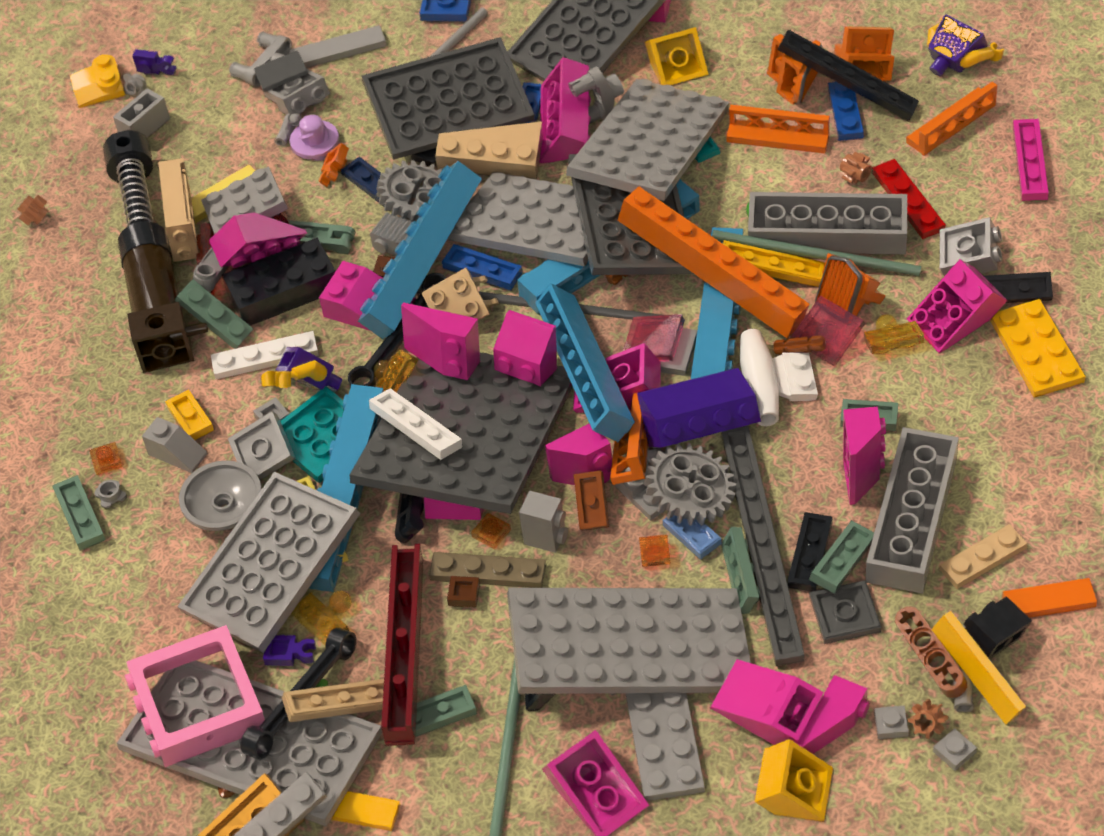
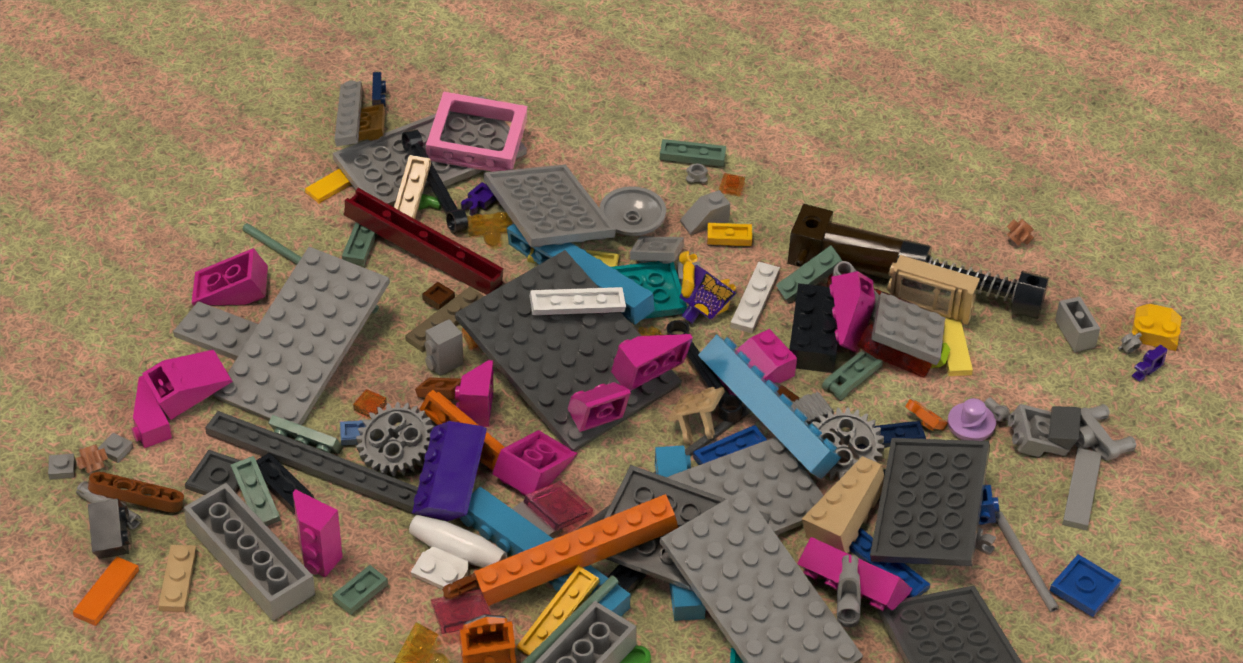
camera: 115 degrees right, 5 degrees down
(585, 364) = (554, 429): dark azure brick -> none
(793, 782) = (121, 368): yellow slope -> none
(978, 668) = (81, 498): yellow tile -> none

